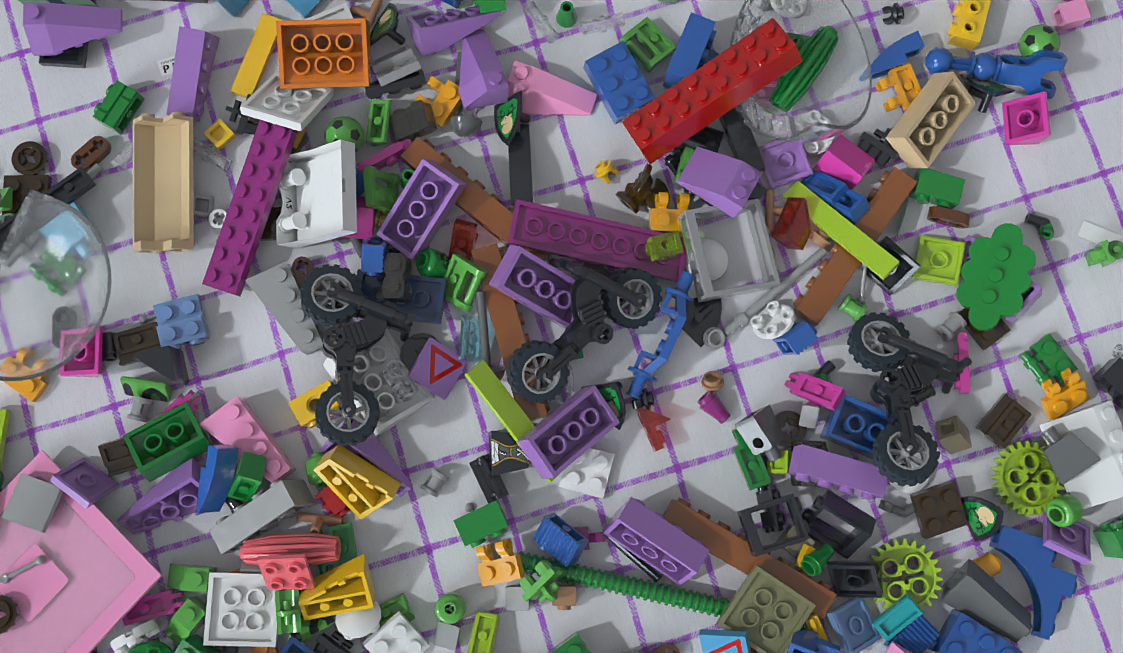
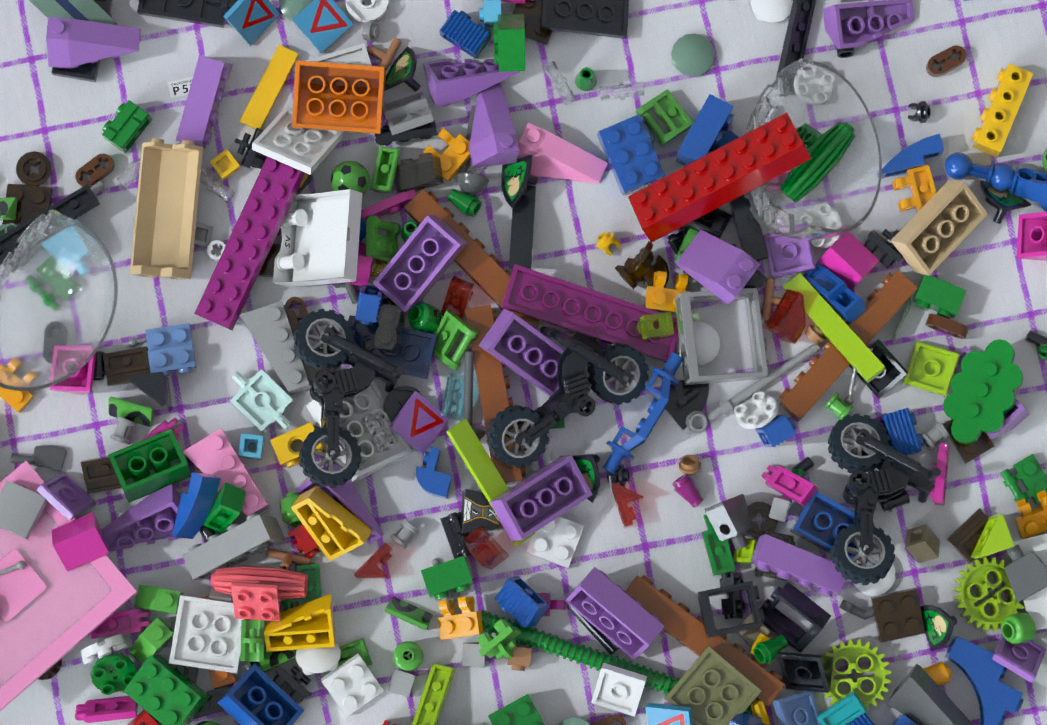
camera: 10 degrees right, 0 degrees up
(62, 444) = (44, 456): none -> dark grey piece
(98, 530) = (79, 542): none -> dark pink slope
(264, 408) = (248, 439): none -> medium azure plate
(277, 363) = (261, 400): none -> light aqua plate
(403, 521) = (370, 568): none -> clear red slope
(447, 563) = (409, 613): none -> bright green slope
(454, 425) = (429, 479): none -> blue brick
(462, 147) = (465, 202): none -> green cone
(517, 489) = (485, 548): none -> clear red slope
(669, 618) = (618, 689): none -> white plate
(919, 324) = (902, 431): none -> blue brick
(1028, 422) = (994, 537): none -> lime slope

